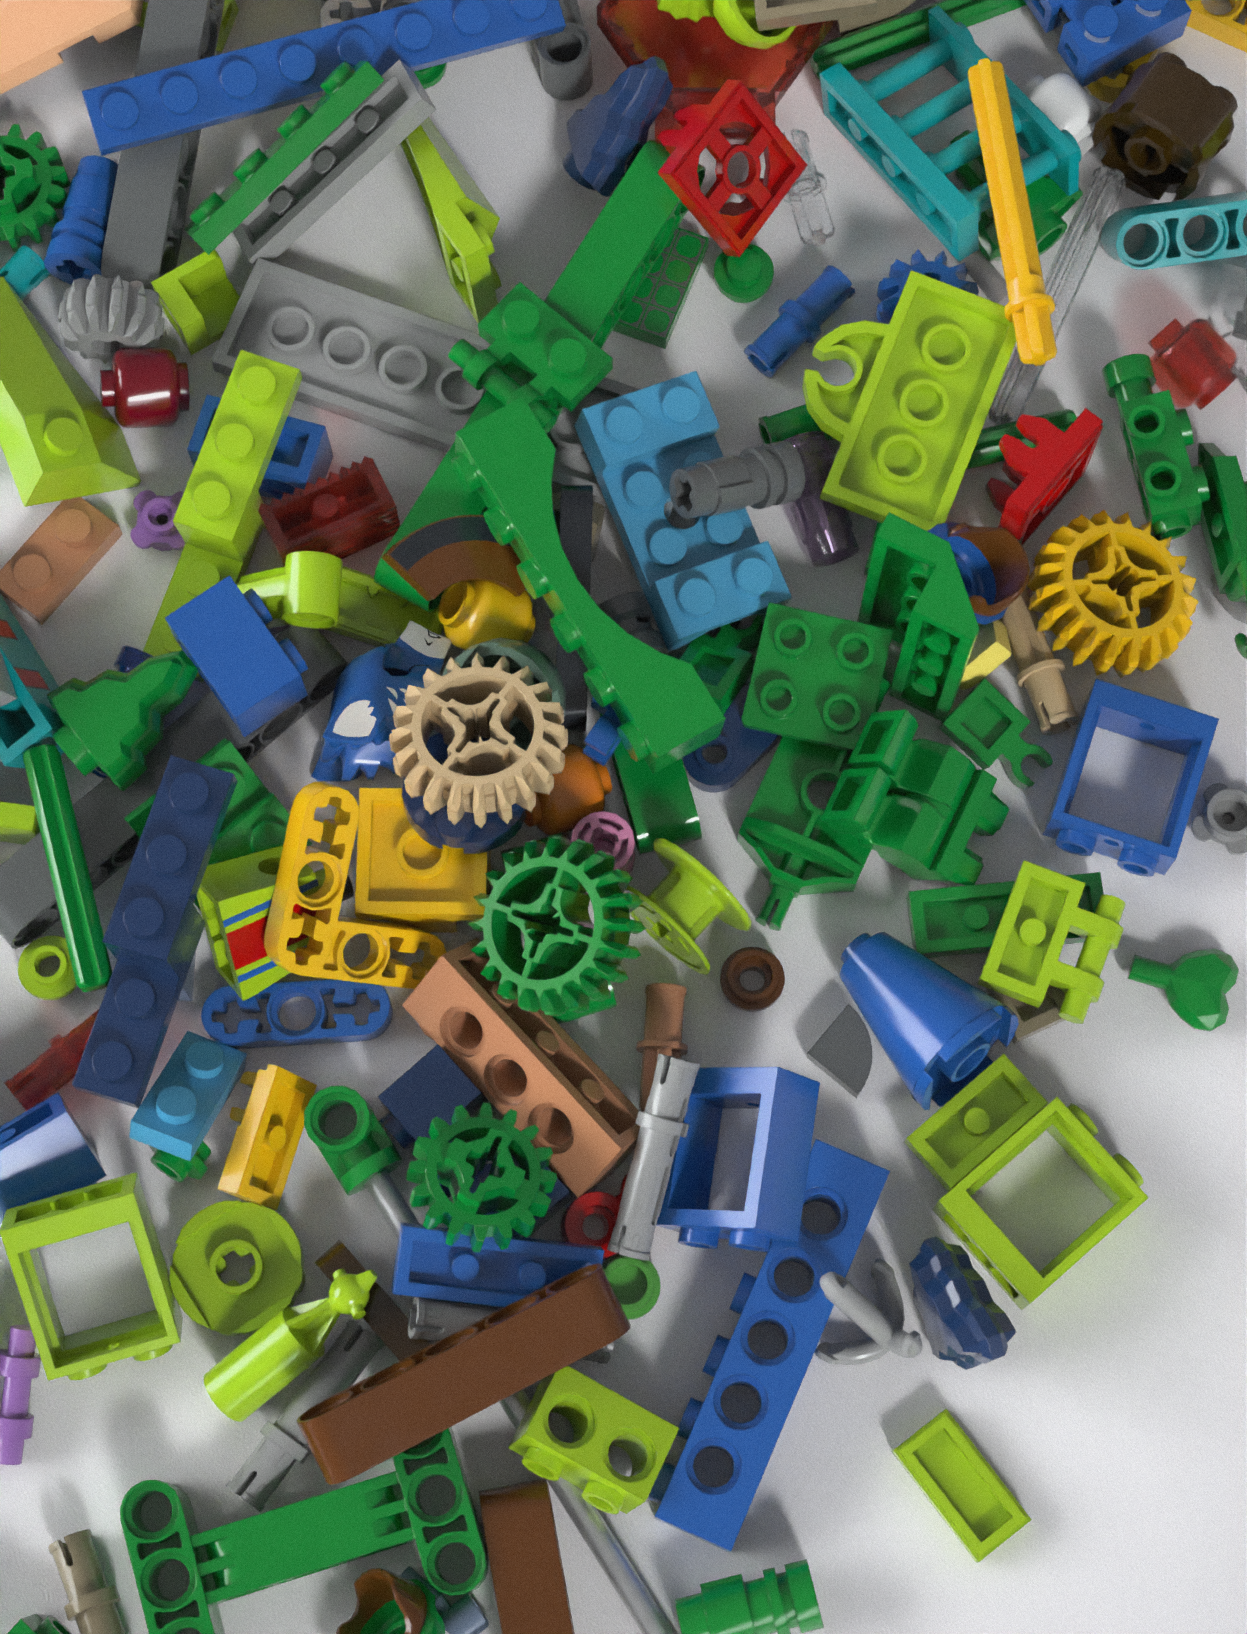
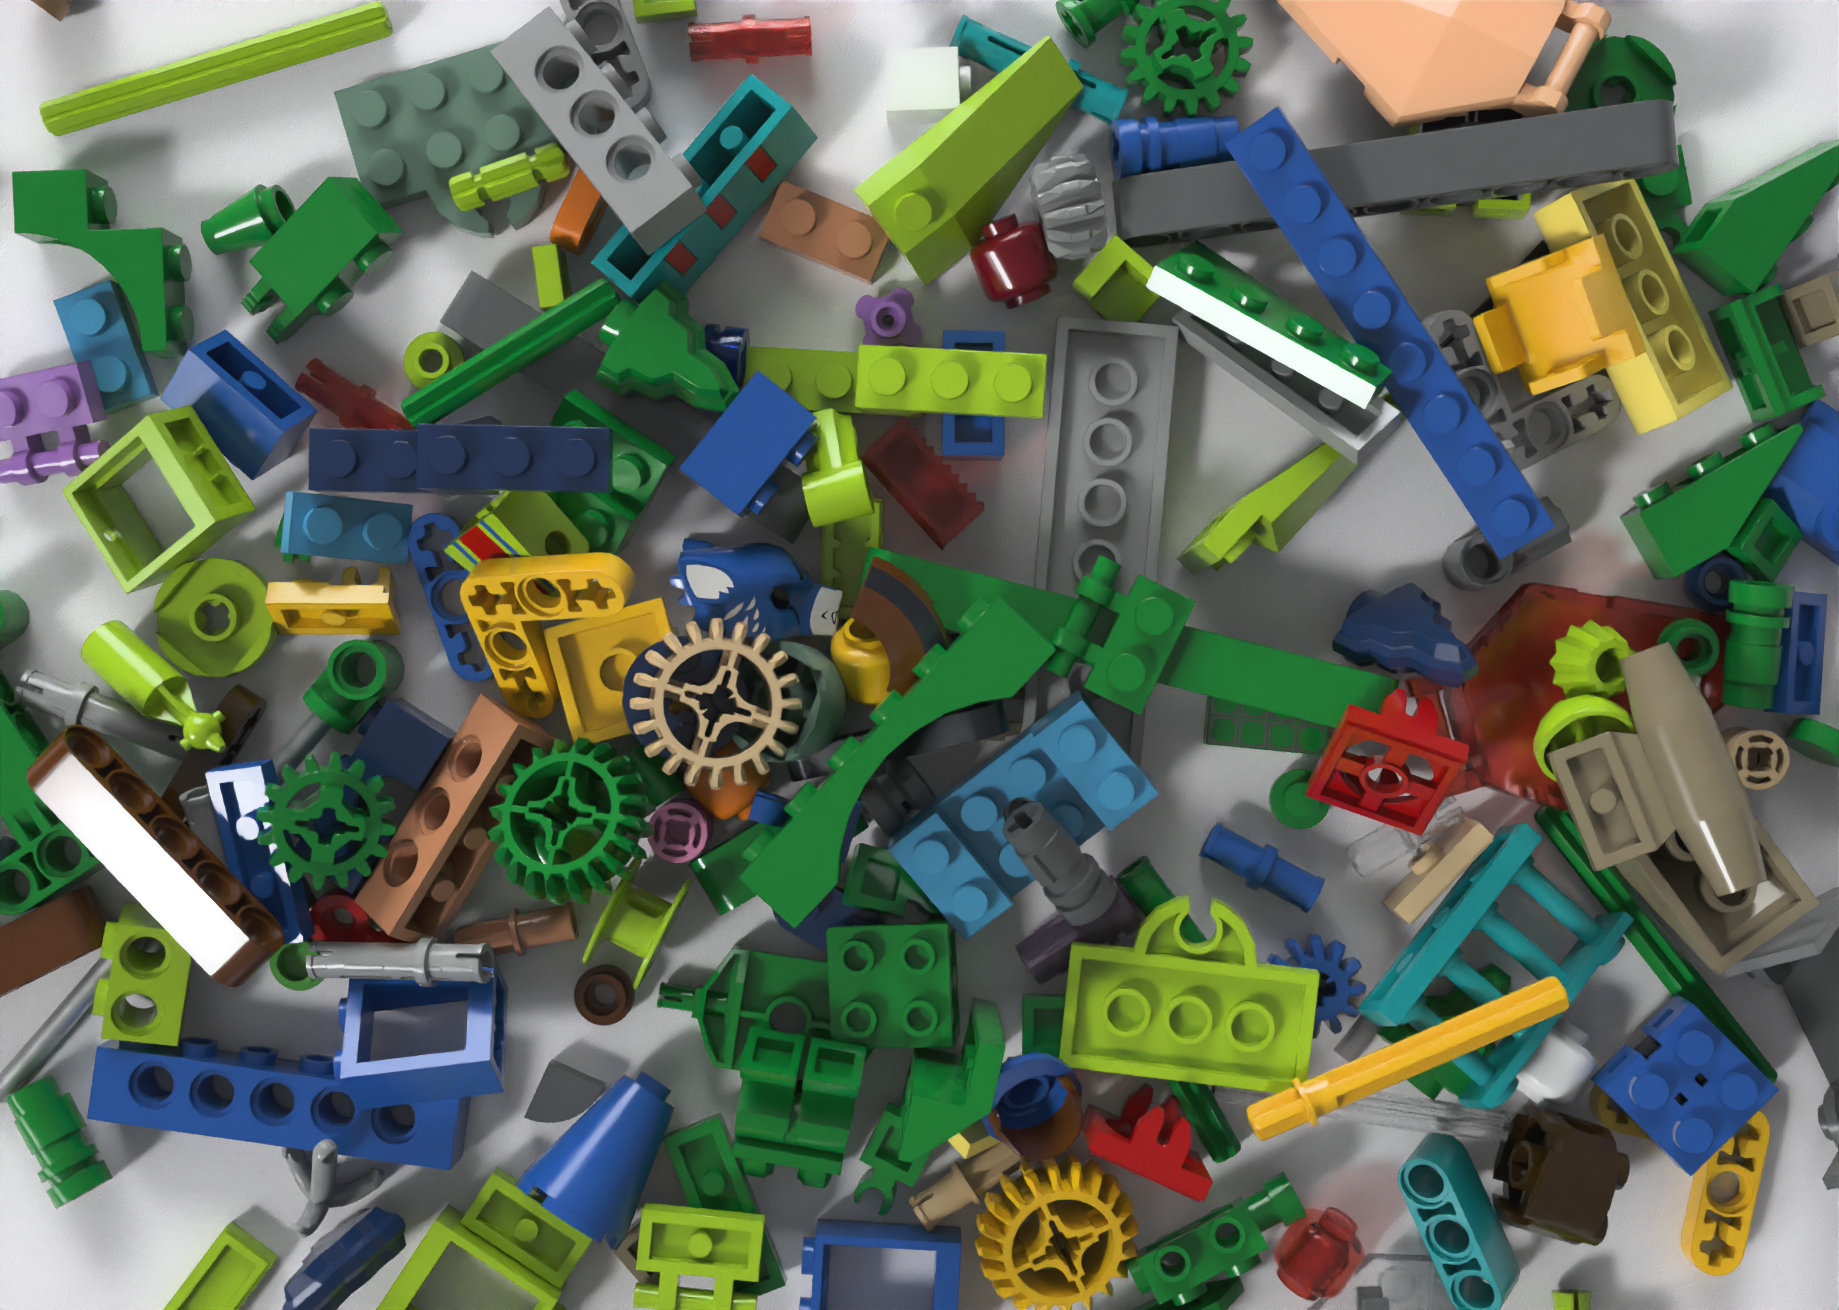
camera: 75 degrees right, 15 degrees up
(846, 167) = (1437, 869): none -> tan plate

